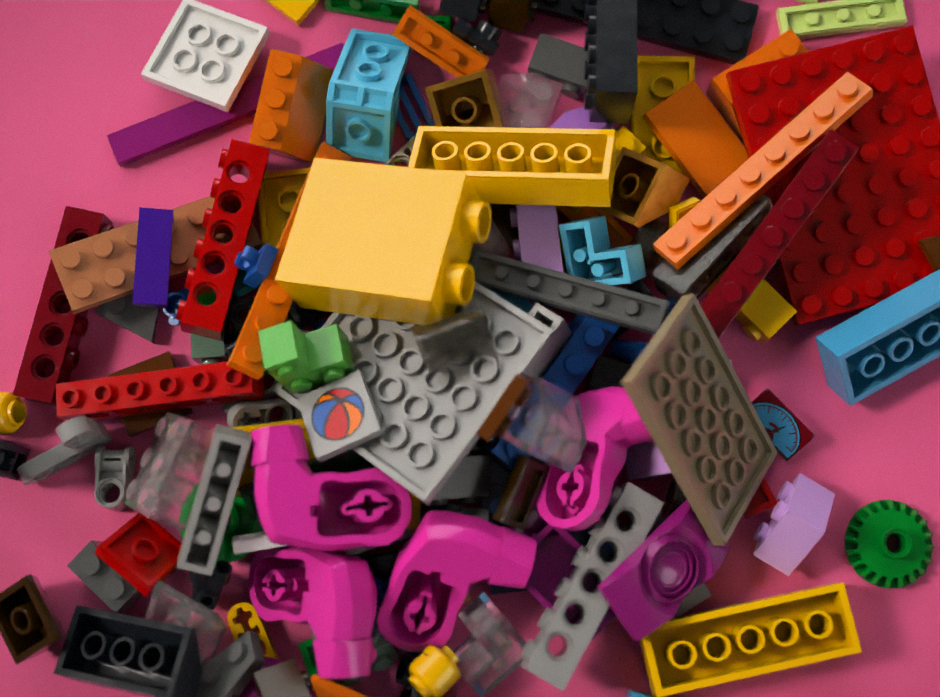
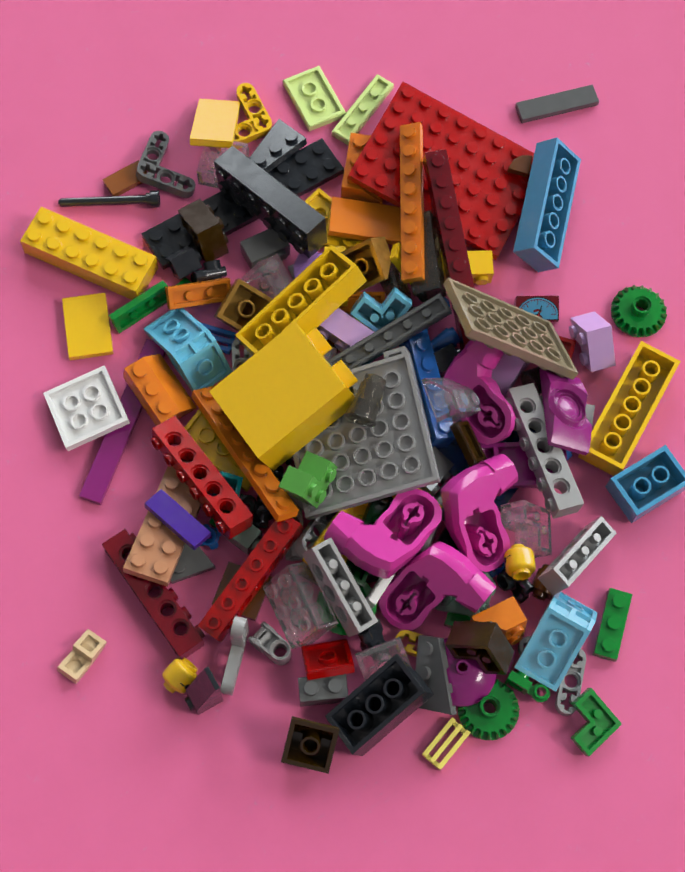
camera: 55 degrees left, 10 degrees down
(256, 263) = (234, 469): blue tile -> none
(340, 416) = (354, 489): tile -> none
(499, 420) = (429, 412): reddish brown plate -> none

